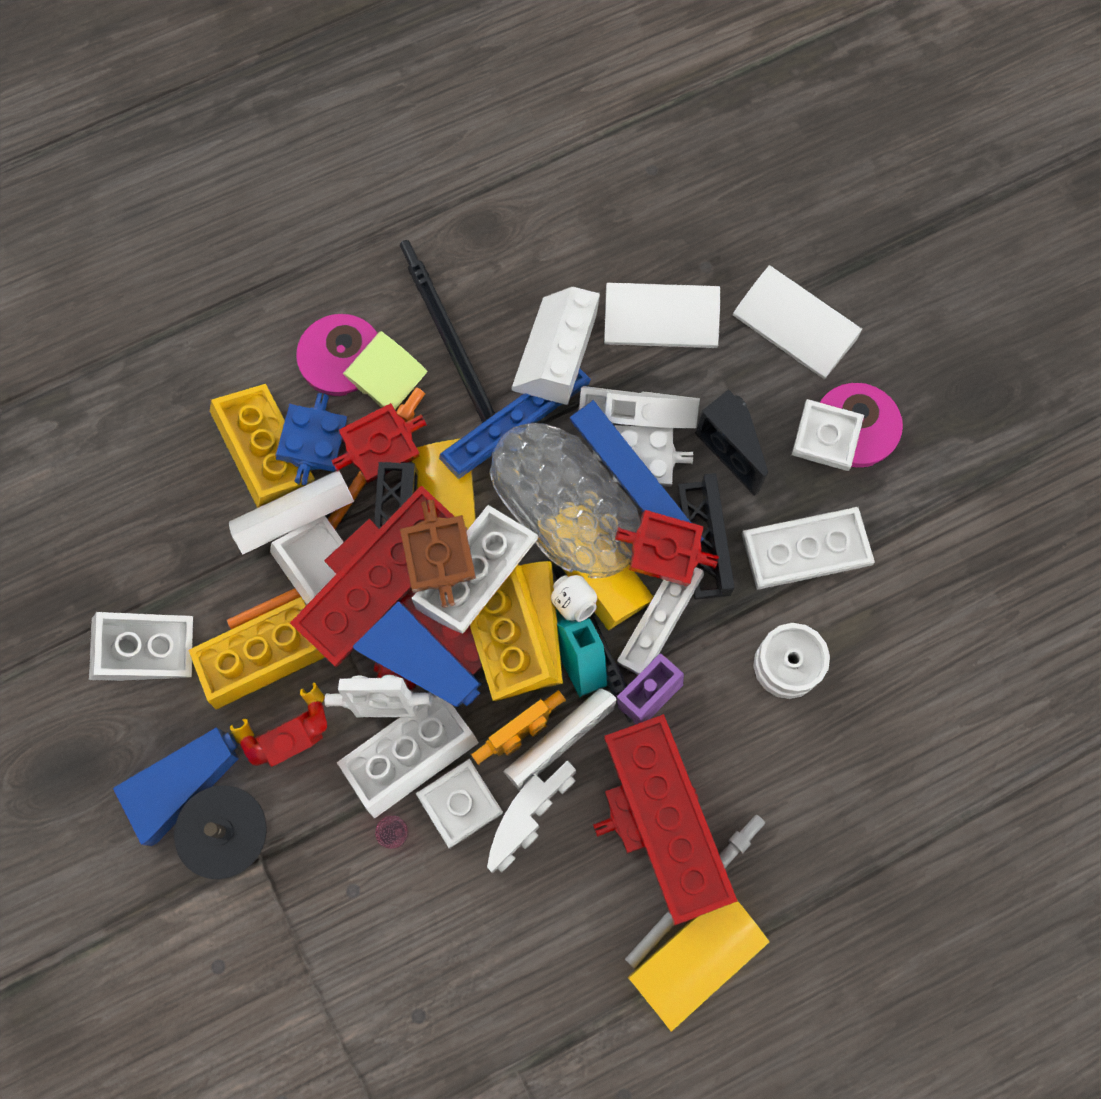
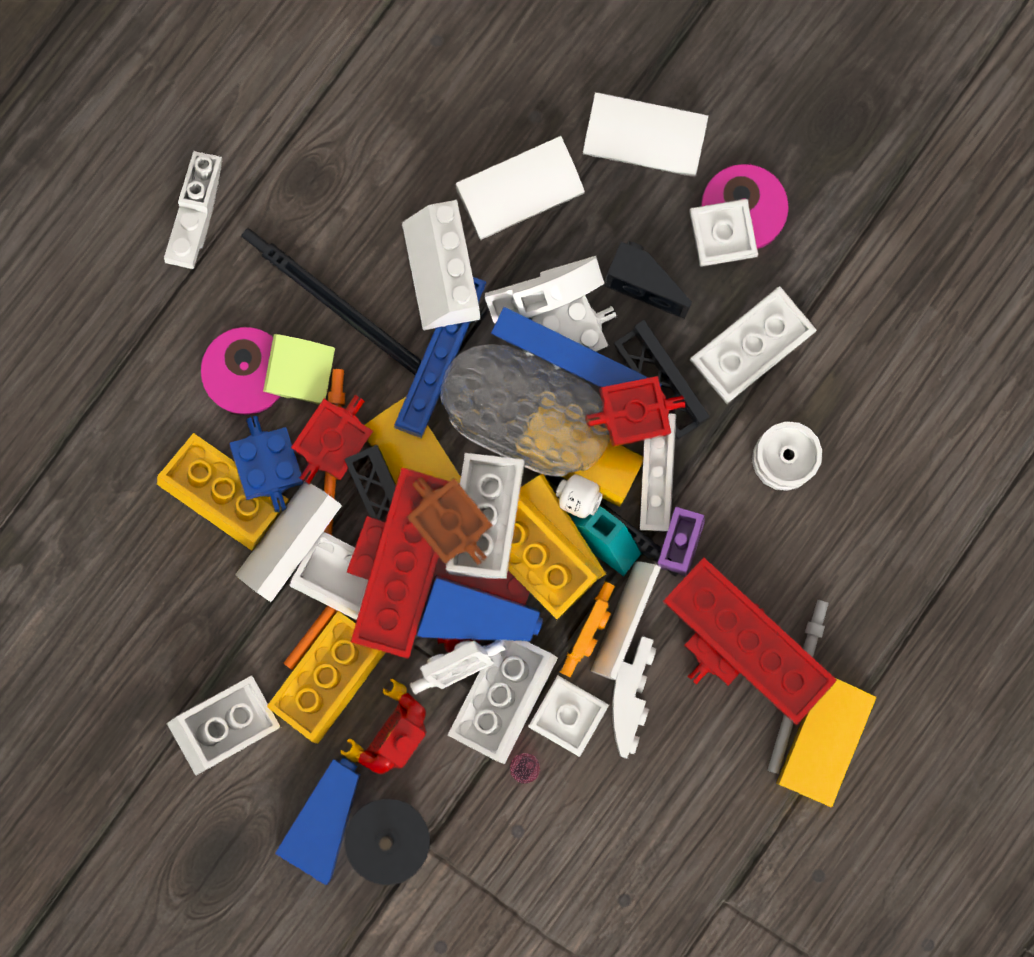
camera: 30 degrees left, 10 degrees up
(373, 207) = (194, 210): none -> white slope

